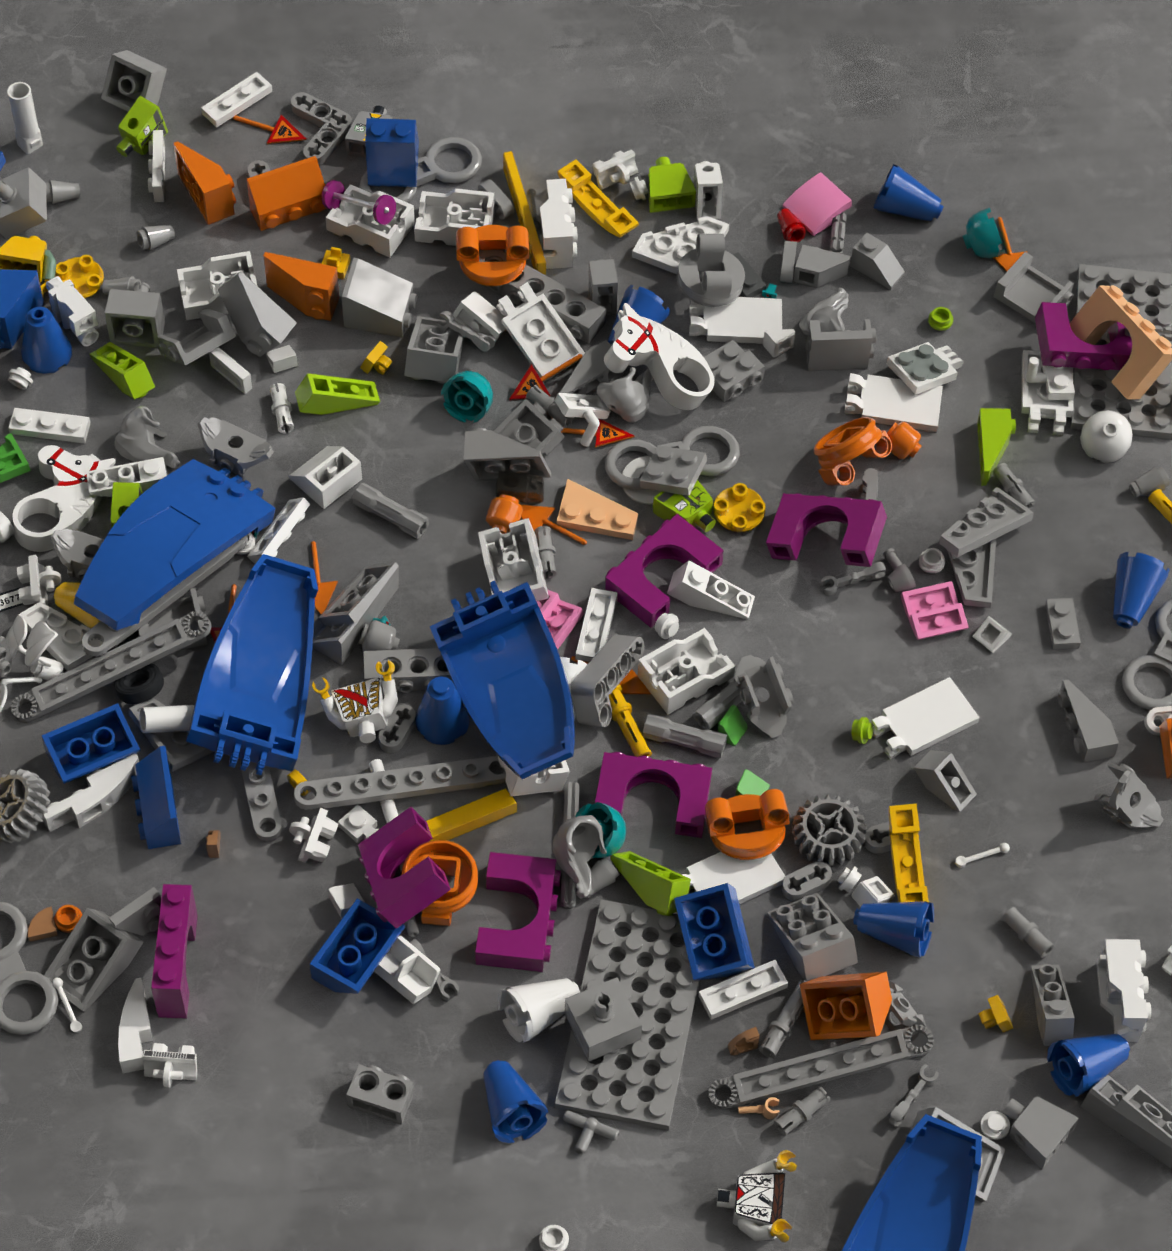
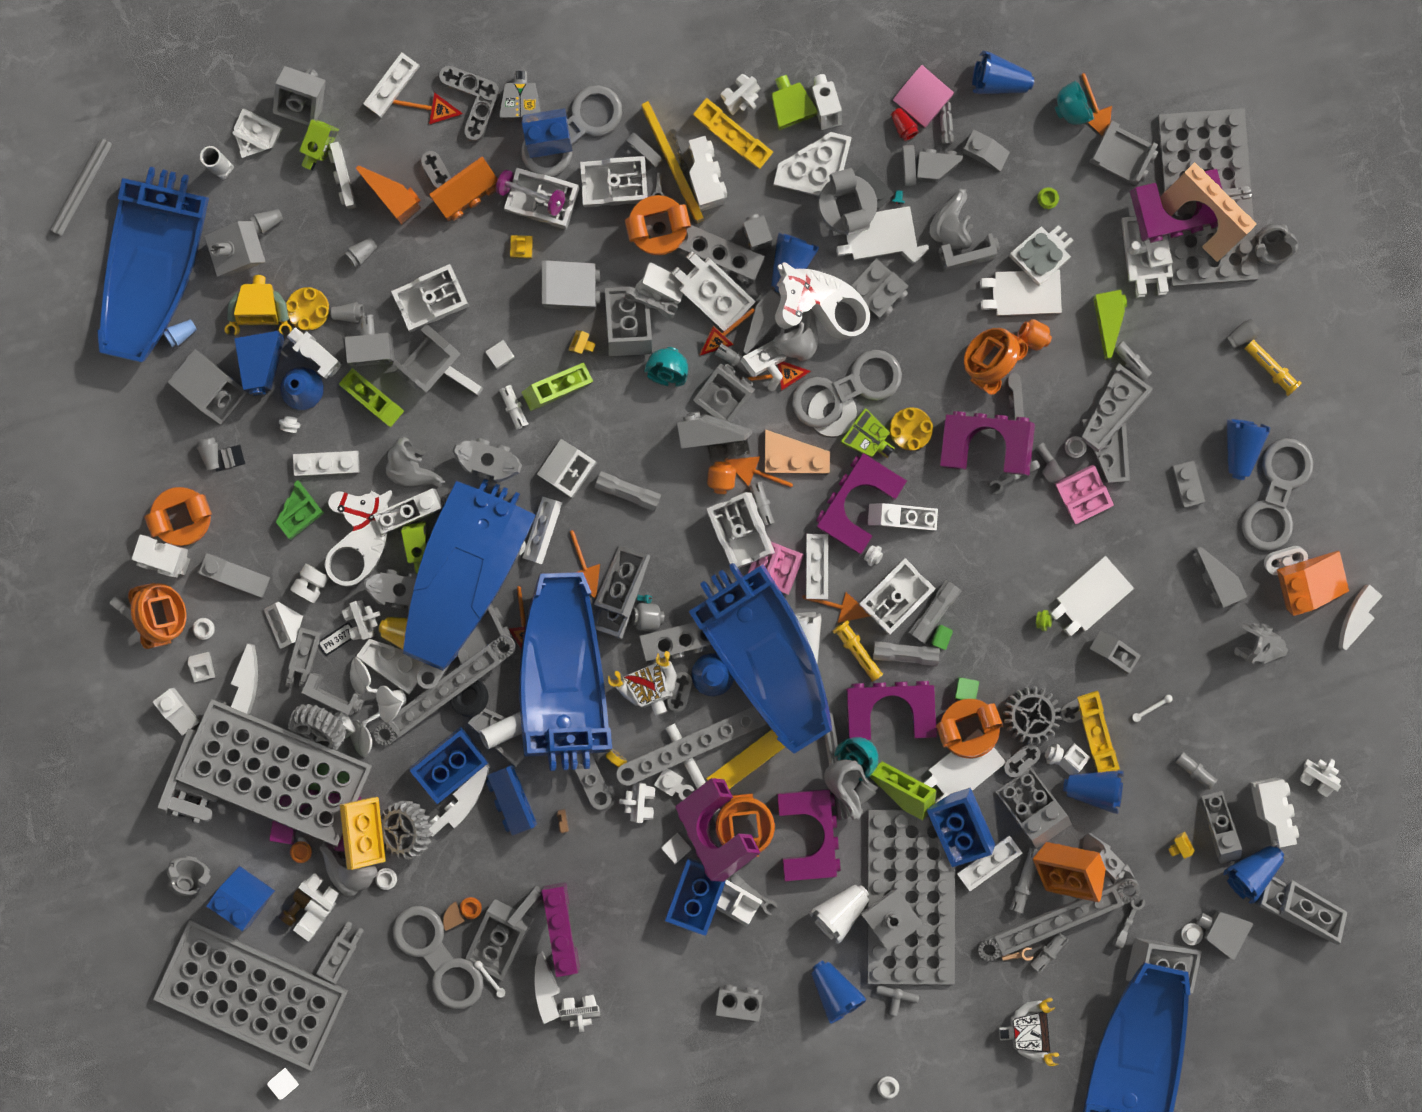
camera: 10 degrees left, 30 degrees up
(76, 117) = (255, 133): none -> white slope
(255, 315) = (473, 336): light grey slope -> none
(303, 284) = (511, 287): orange slope -> none
(601, 676) = (834, 618): light grey beam -> none
(639, 188) = (766, 112): white plate -> none
(673, 470) = (852, 412): light grey plate -> none
(744, 1042) = (1001, 905): medium nougat tile -> none
(770, 714) = (949, 595): light grey piece -> none
(991, 634) = (1133, 505): white slope -> none
(1106, 436) = (1203, 296): white cylinder -> none

